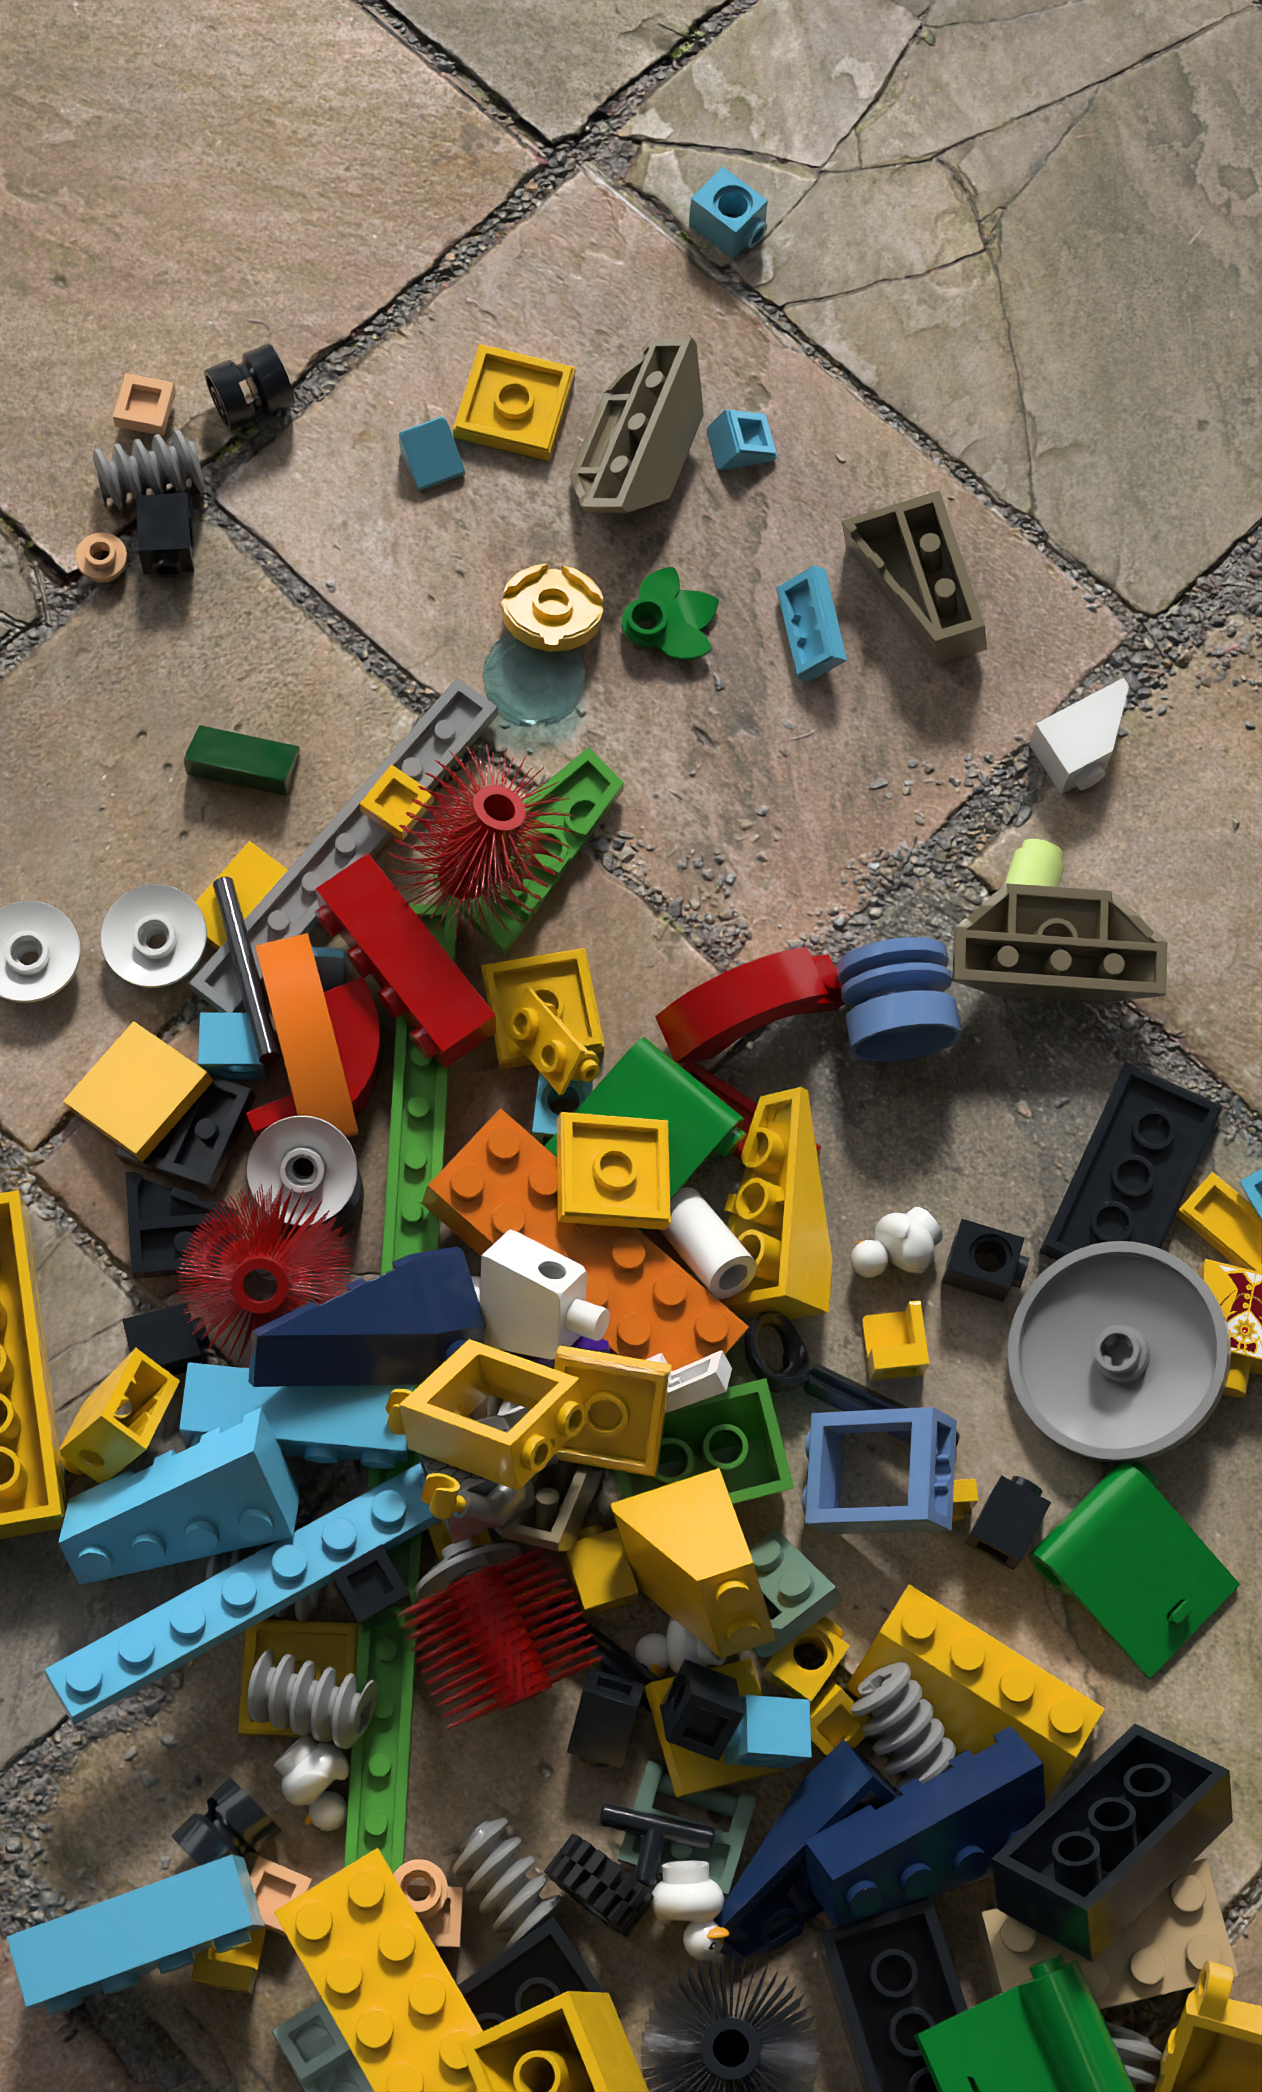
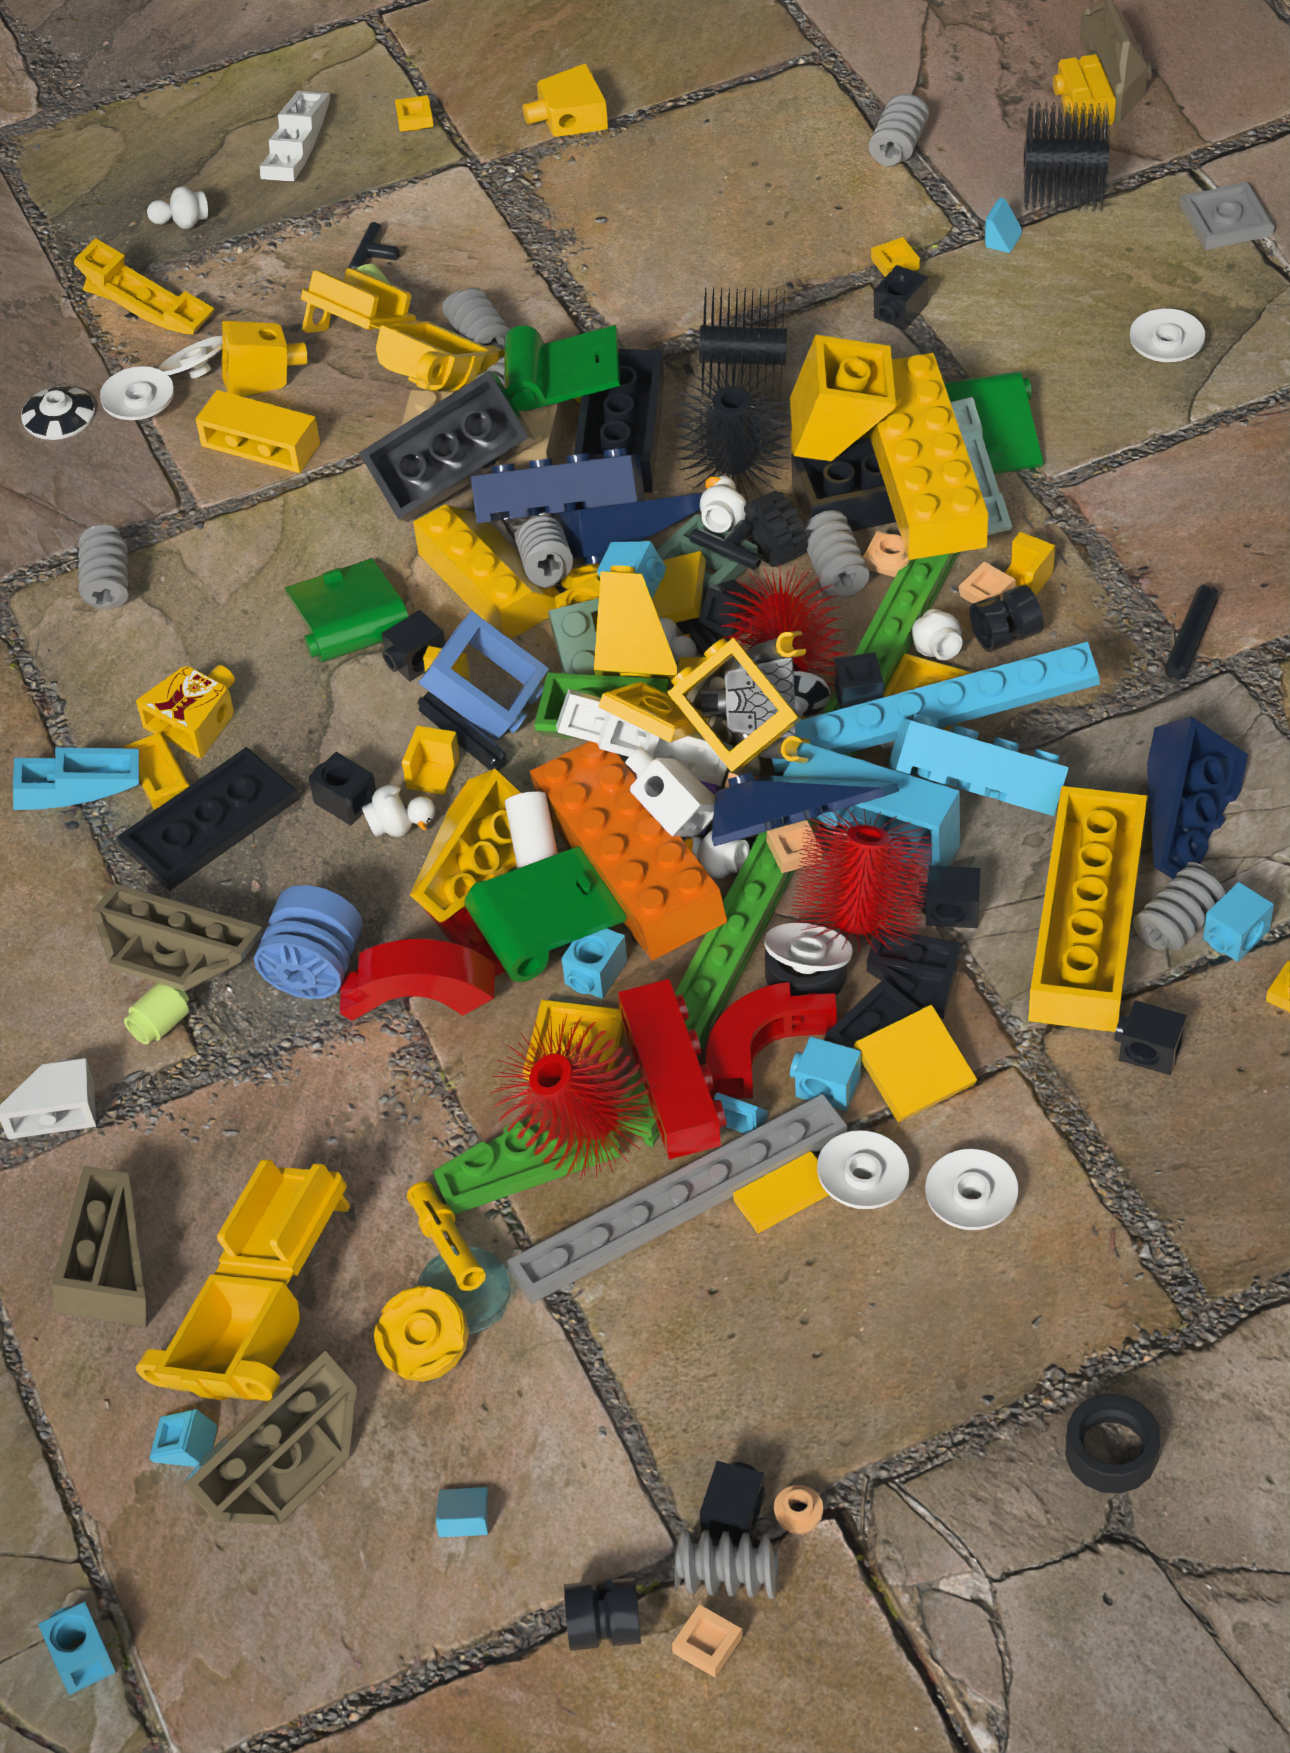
camera: 150 degrees left, 20 degrees down
(107, 1442) = (1003, 835): yellow torso -> none
(135, 1934) = (1085, 558): medium azure wedge -> none
(241, 760) = (738, 1295): dark green slope -> none
(246, 970) = (797, 1106): black bar -> none
(306, 1032) = (768, 1041): orange slope -> none
(308, 1703) = (919, 651): light grey piece -> none
(391, 800) = (624, 1193): yellow plate -> none
(514, 402) = (364, 1541): yellow tile -> none
(550, 1043) = (579, 966): yellow hinge -> none
(581, 718) = (427, 1204): none -> yellow pin
(613, 1171) = (579, 865): yellow tile -> none
(675, 612) = (322, 1303): green plate -> none
(701, 1710) = (670, 569): black brick -> none
(739, 548) = (245, 1306): none -> yellow piece
(795, 1356) = (516, 762): black piece -> none
(811, 623) = (205, 1247): medium azure plate -> none
(1119, 1352) = (284, 702): light grey dish -> none

